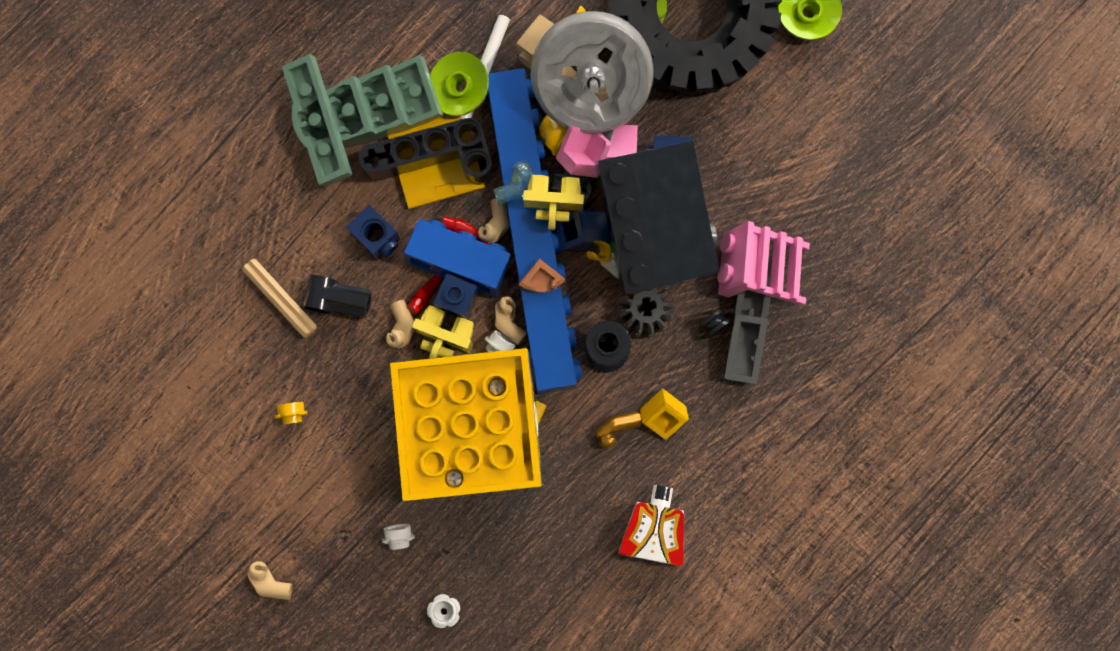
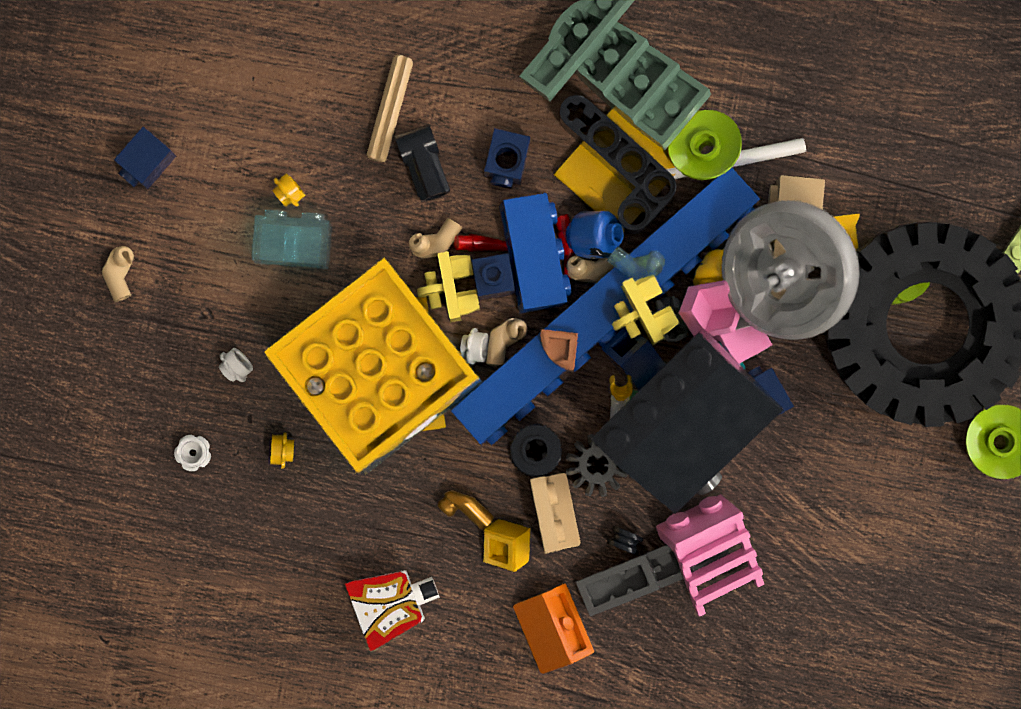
camera: 55 degrees right, 5 degrees up
(194, 507) = (144, 159): none -> dark blue brick
(330, 432) = (292, 240): none -> clear light blue brick
(472, 204) = (594, 234): none -> blue head
(485, 540) = (281, 450): none -> yellow plate
(662, 363) = (555, 512): none -> tan bracket
(749, 418) = (553, 629): none -> orange panel

